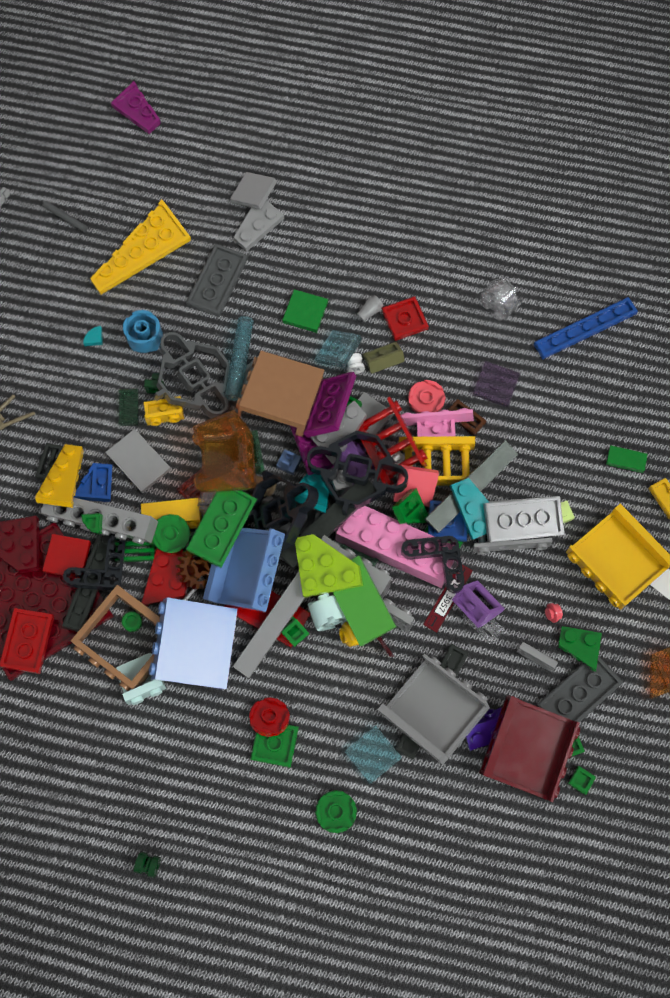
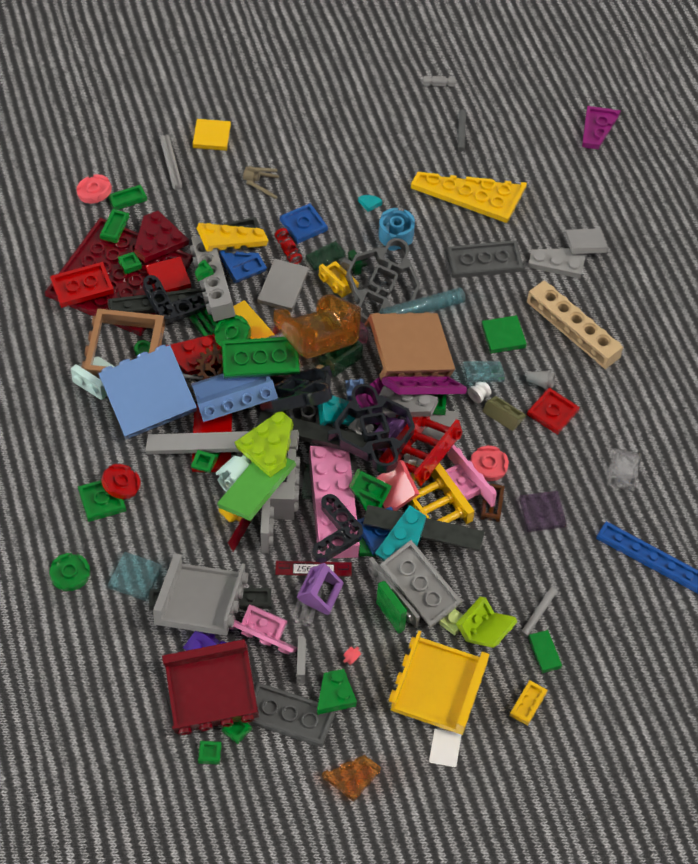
camera: 55 degrees right, 15 degrees down
(27, 583) = (129, 262): none -> green tile
(80, 405) = (303, 223): none -> blue tile
(100, 432) = (285, 246): none -> red piece
(325, 257) = (575, 324): none -> tan brick
(492, 669) = (264, 626): none -> bright pink bracket
(531, 555) = (391, 606): none -> green tile
(586, 489) = (483, 625): none -> lime bracket
(587, 441) = (538, 612): none -> light grey bar

